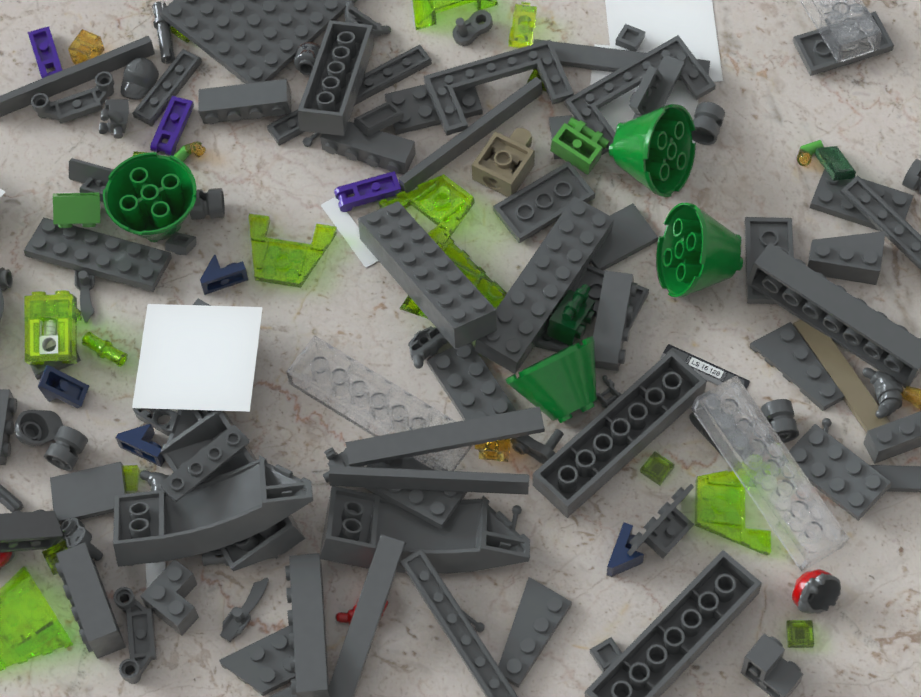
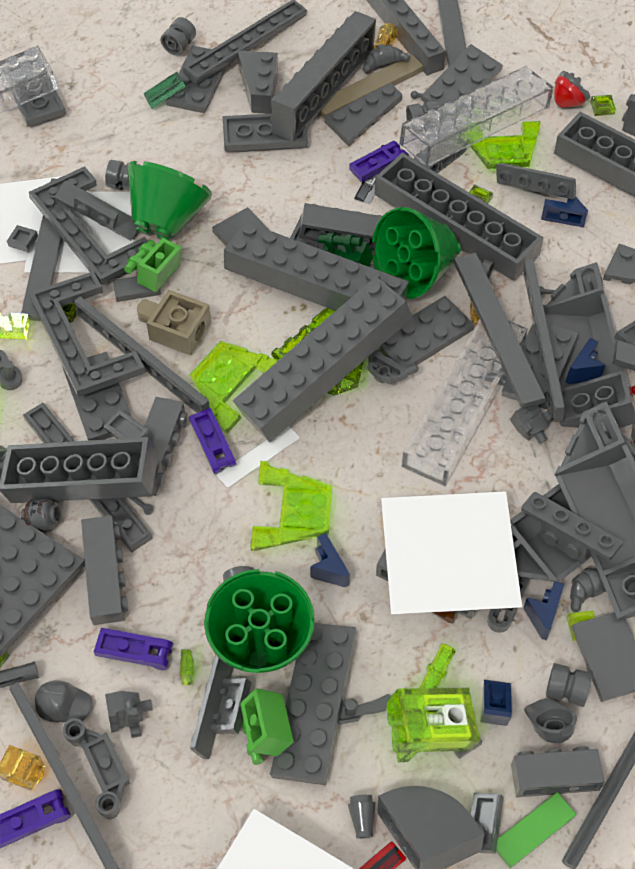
camera: 100 degrees left, 5 degrees down
(167, 86) = (74, 665): dark grey tile -> none
(186, 150) = (164, 625): clear yellow arm -> none
(401, 521) = (585, 365): none -> dark blue slope
(542, 201) = (211, 284): dark grey plate -> none
(695, 251) = (277, 167): green cone -> none
(710, 361) = (375, 161): none -> dark purple plate
(806, 151) = (155, 114): arm -> none

